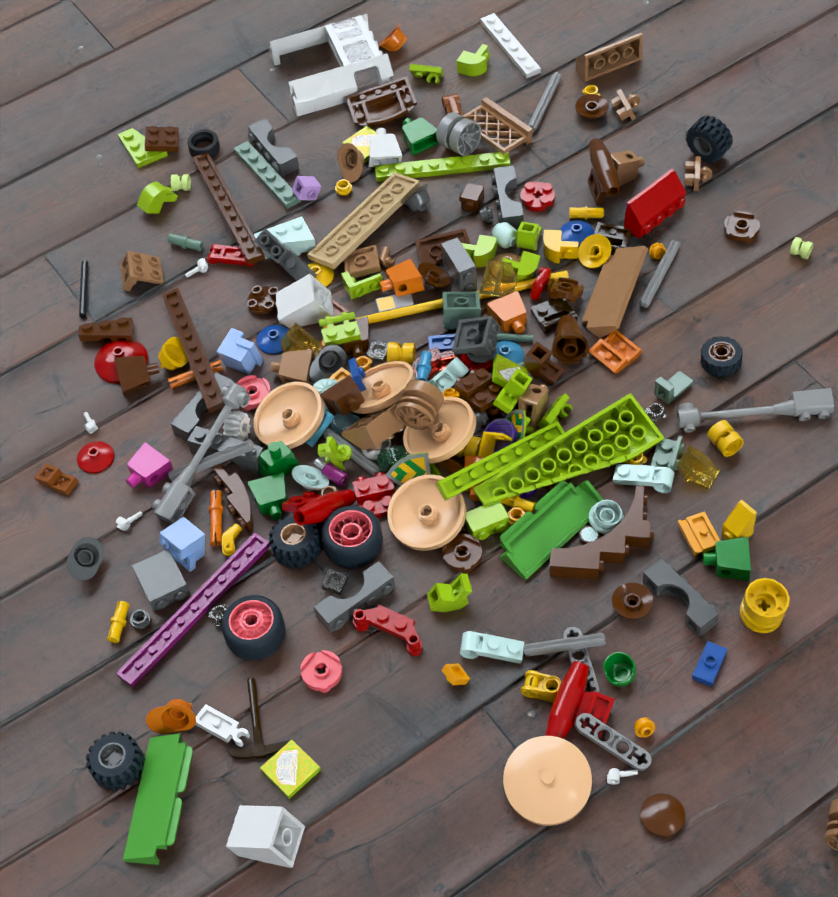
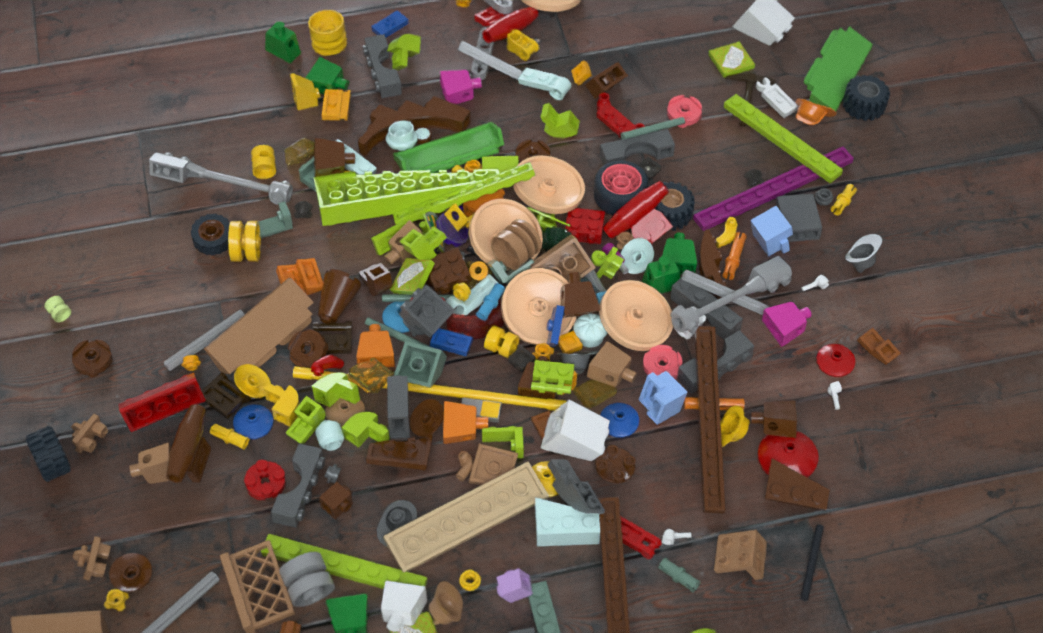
camera: 165 degrees left, 0 degrees up
(201, 666) = (783, 138): none -> lime plate
(253, 627) = (729, 149): wheel -> none
(343, 617) = (652, 128): none -> sand green bar
(420, 666) = (606, 80): none -> reddish brown brick
(455, 372) = (461, 291): none -> yellow plate
(584, 603) = (458, 86): none -> dark pink torso
(619, 669) = (457, 33): green hair -> none
(632, 593) = (420, 75): reddish brown dish -> none
(657, 451) = (330, 157): none -> reddish brown torso
(669, 621) = (402, 48): none -> lime brick
(682, 348) = (244, 241): none -> yellow wheel
(806, 578) = (282, 42): none -> green torso

